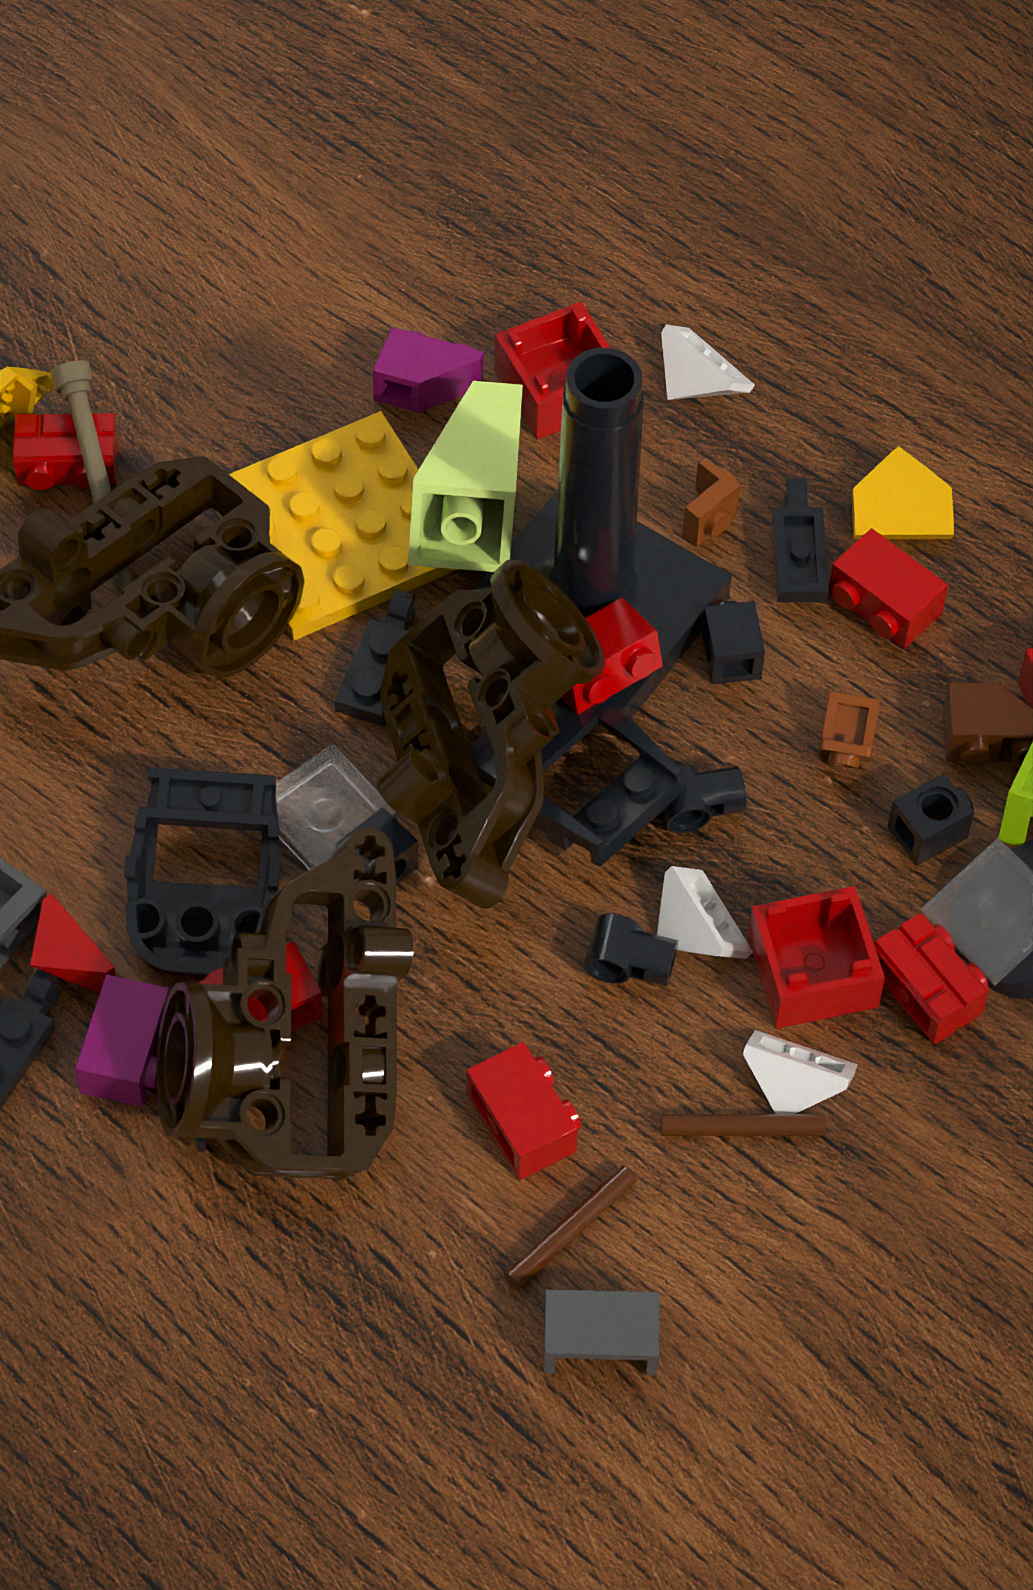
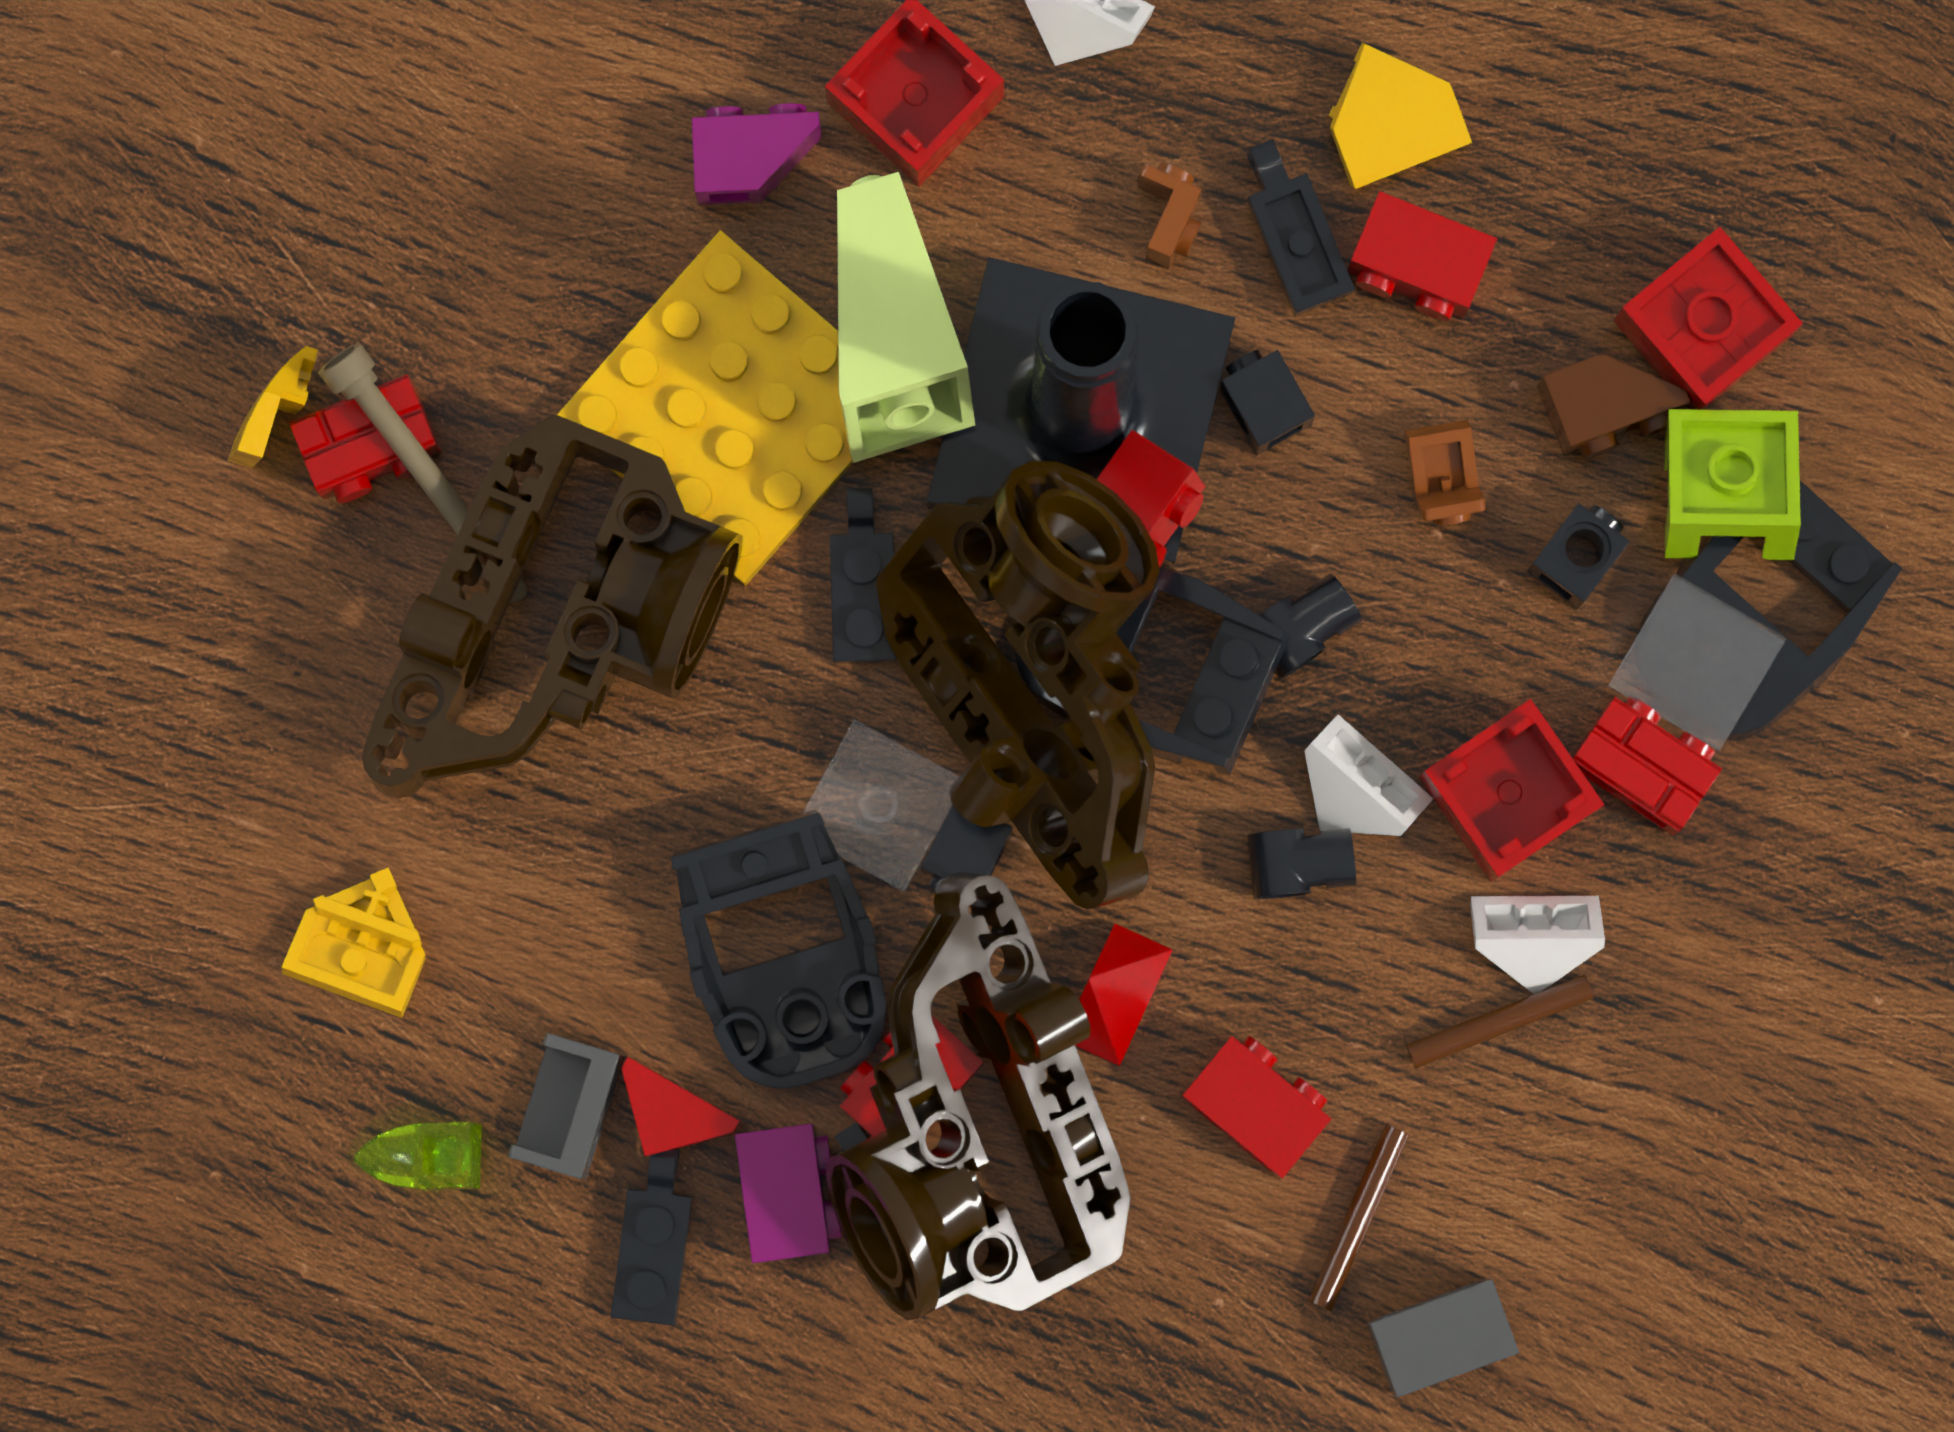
camera: 15 degrees left, 25 degrees up
(445, 998) = (1120, 991): none -> red slope

